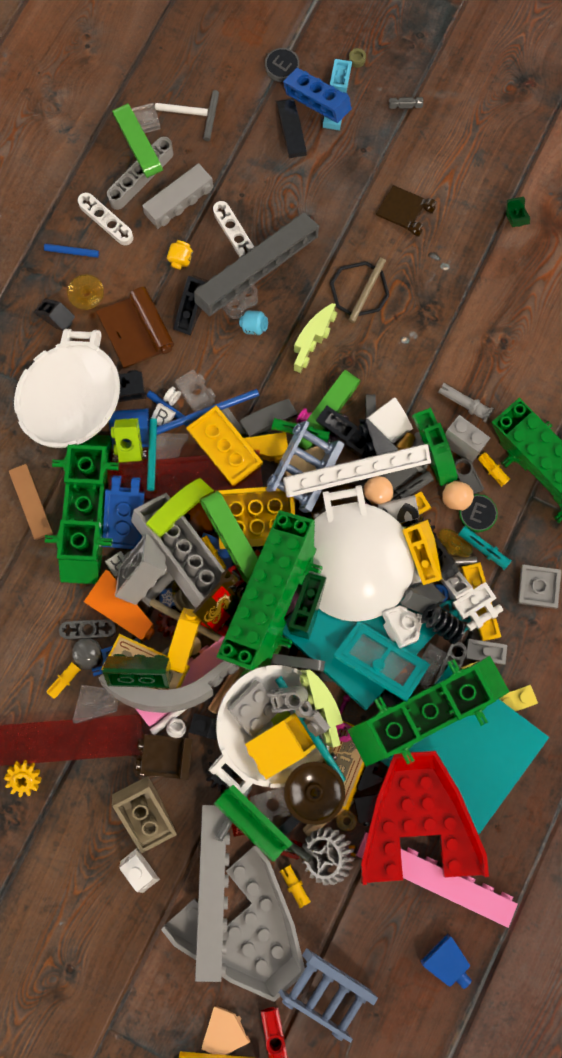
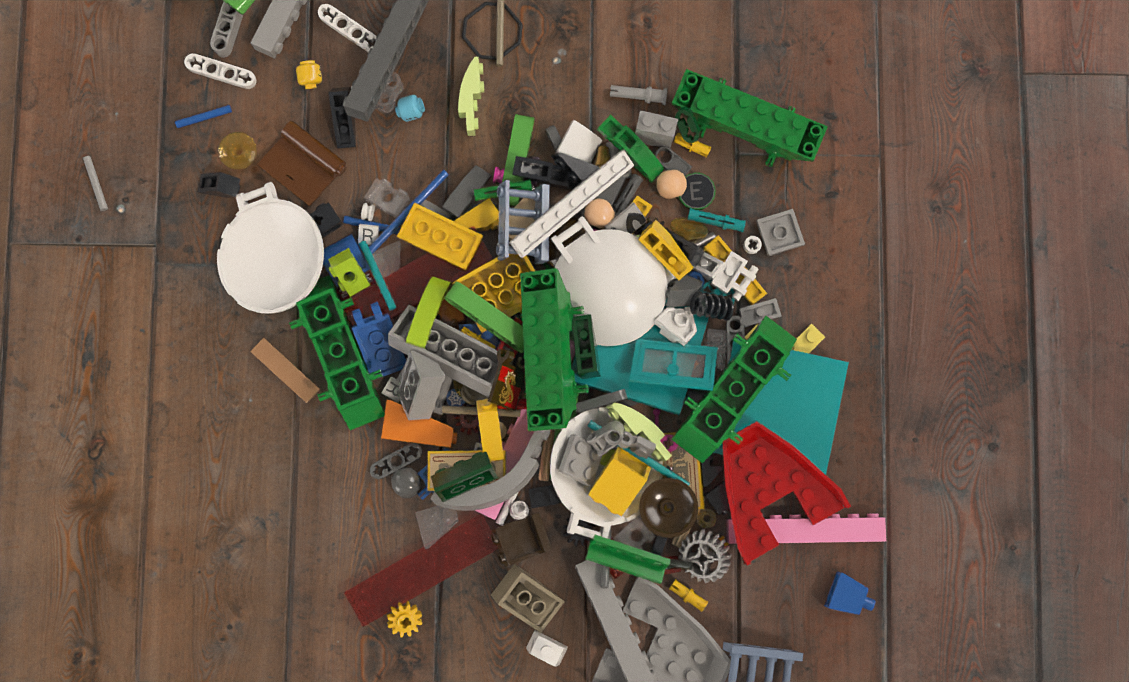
camera: 30 degrees left, 5 degrees up
(63, 680) = (397, 516): yellow axle -> none
(501, 448) = (691, 123): none -> dark green beam
(512, 590) = (758, 246): none -> white bush

